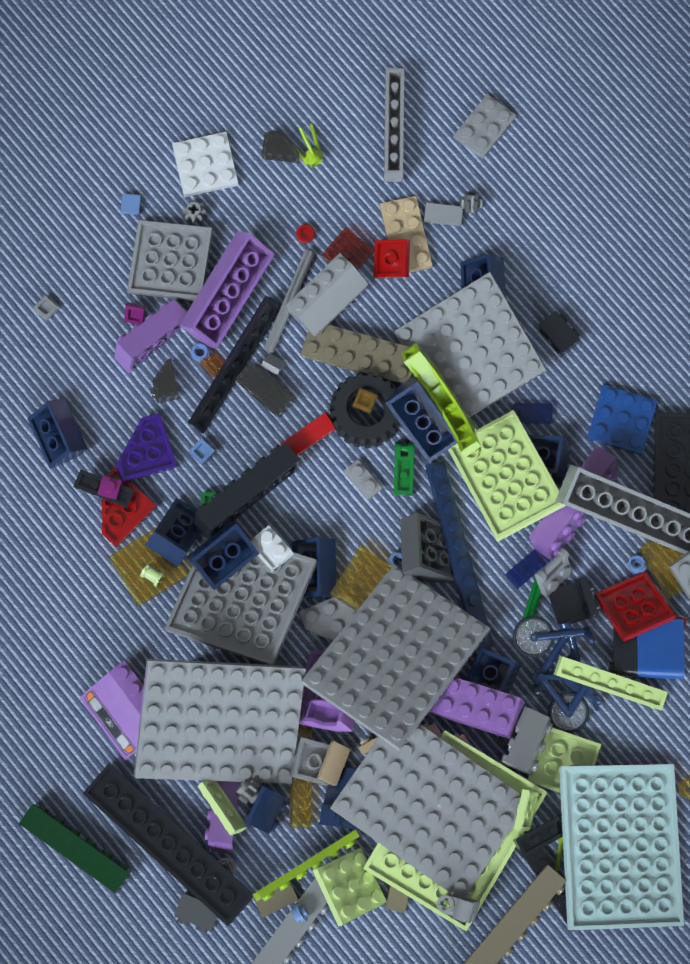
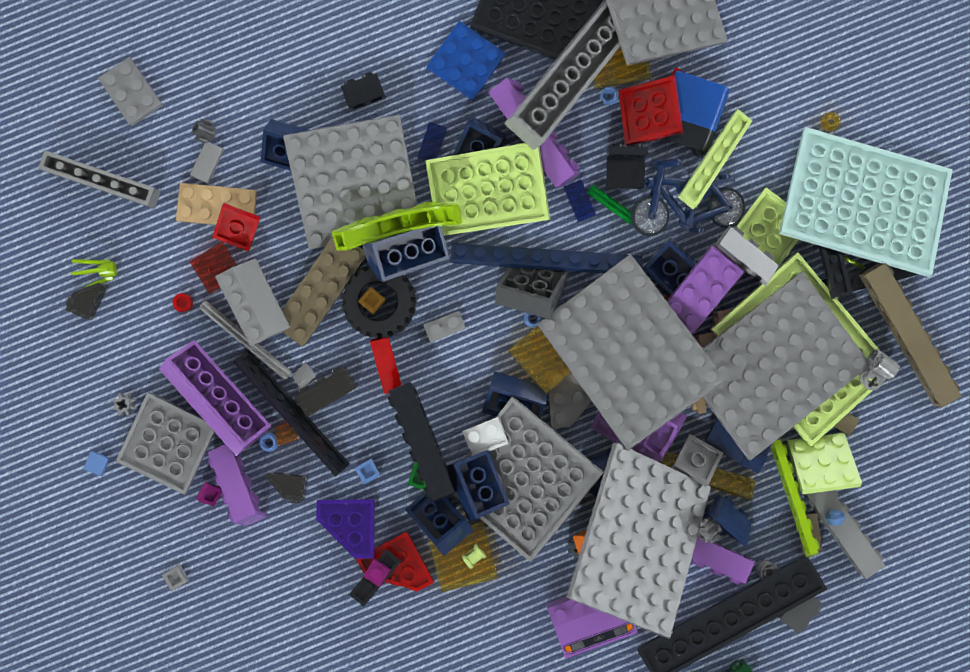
camera: 65 degrees left, 10 degrees up
(57, 432) = (304, 604): dark blue slope -> none
(205, 164) = (79, 378): white plate -> none
(222, 807) = (718, 560): yellowish green plate -> none
(333, 763) = (705, 441): tan tile -> none
(403, 470) = (447, 284): green plate -> none
(526, 810) = (813, 279): yellowish green plate -> none
(554, 573) = (595, 176): light grey plate -> none

